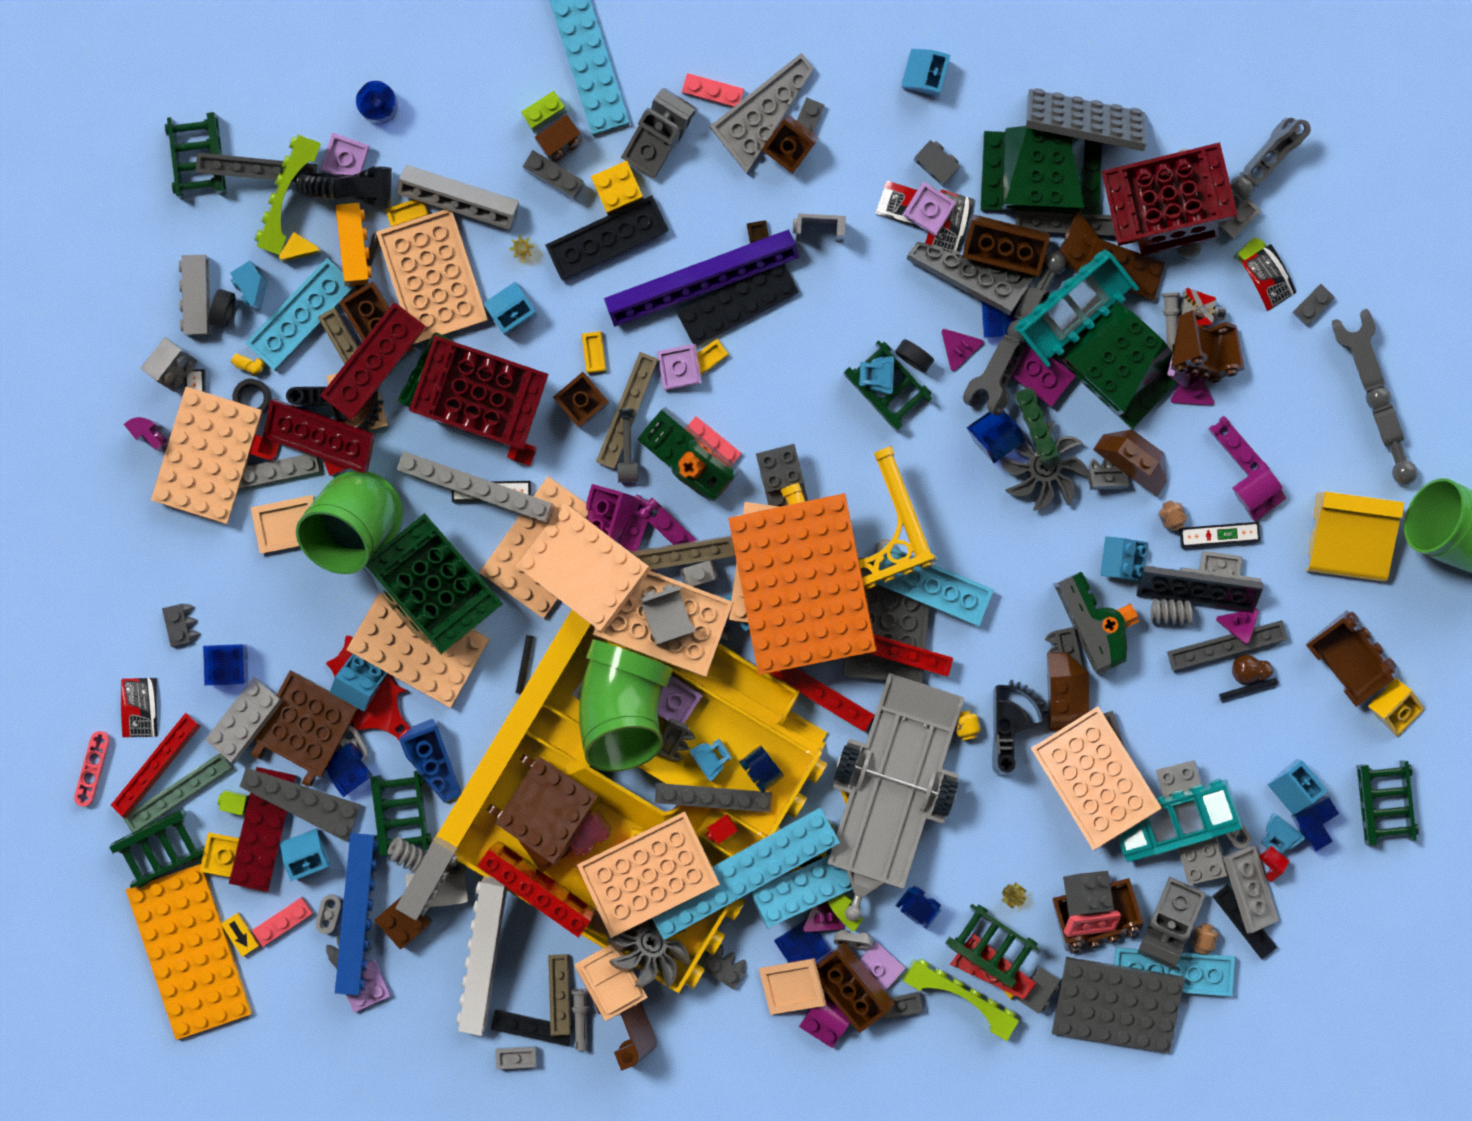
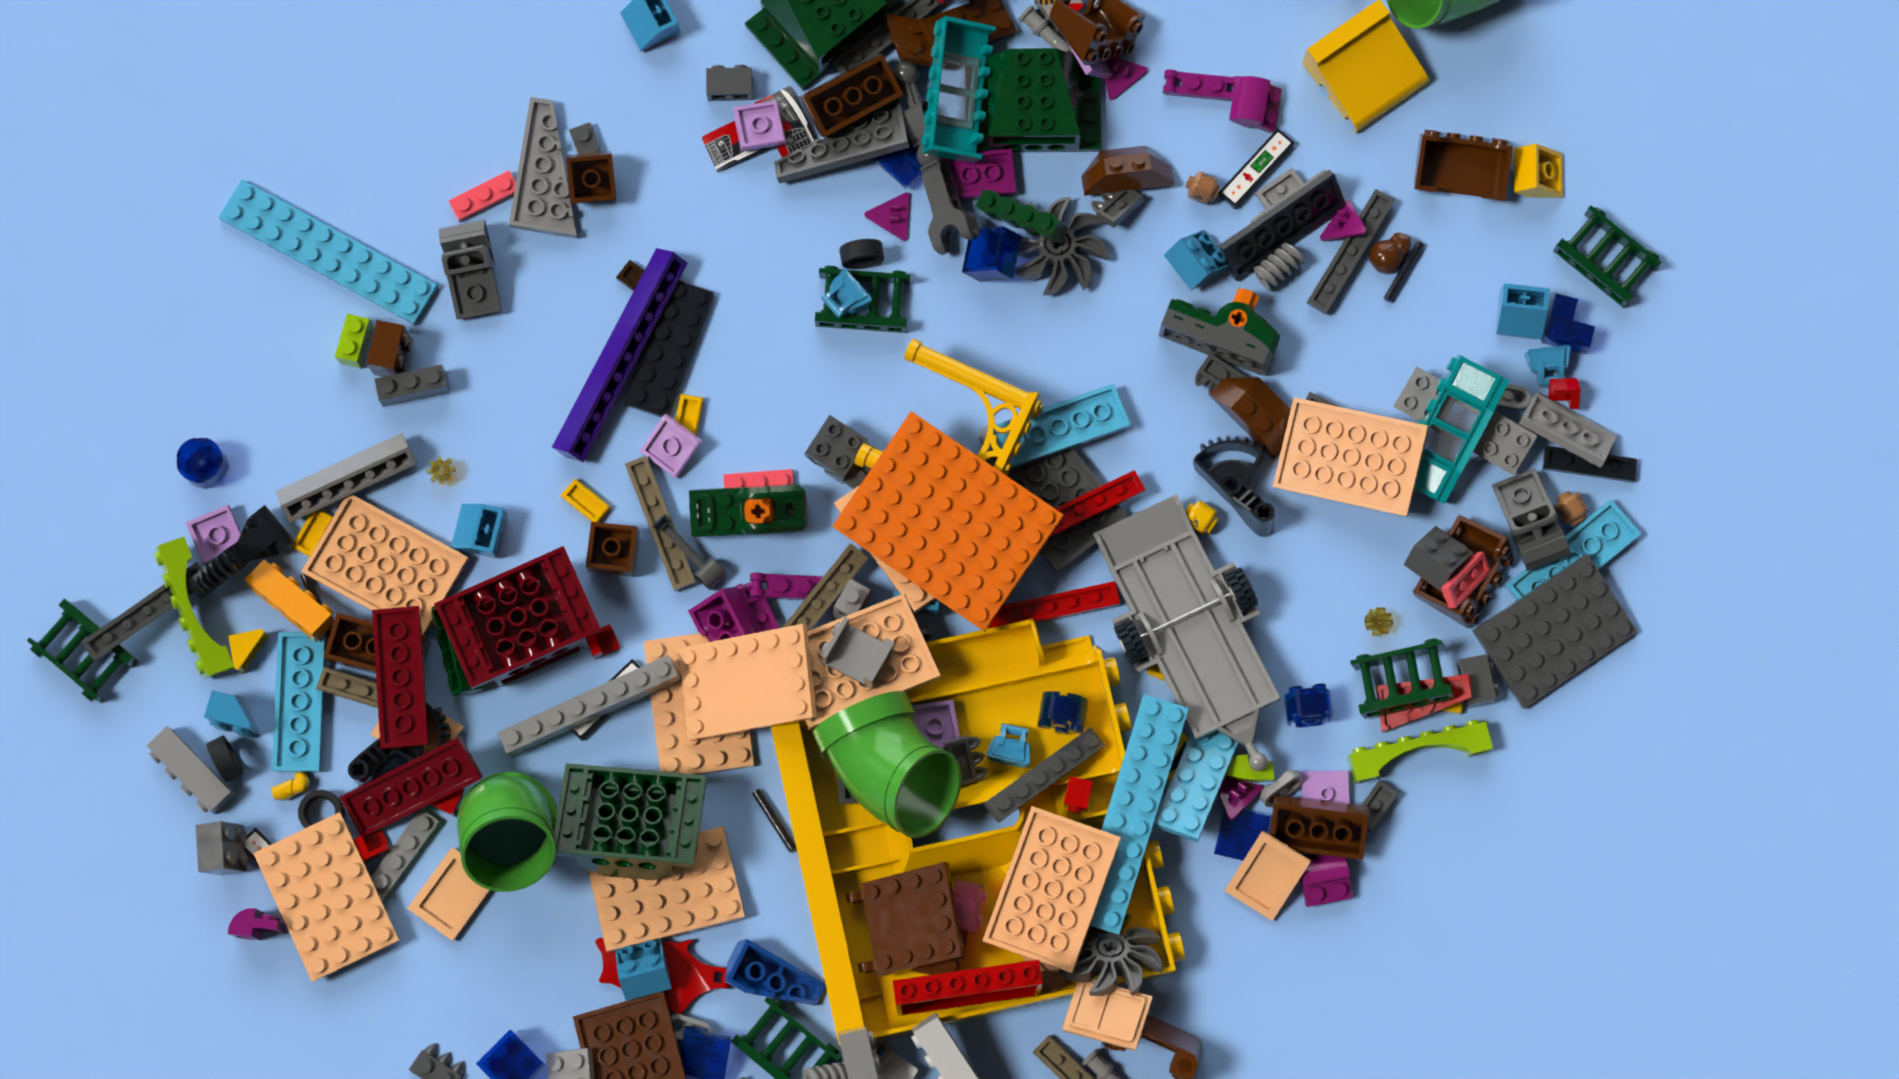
camera: 45 degrees left, 10 degrees down
(607, 238) = (507, 396): black plate -> none
(617, 187) = (477, 346): yellow brick -> none
(723, 967) = (1195, 920): dark grey plate -> none
(836, 220) = (677, 213): light grey panel -> none

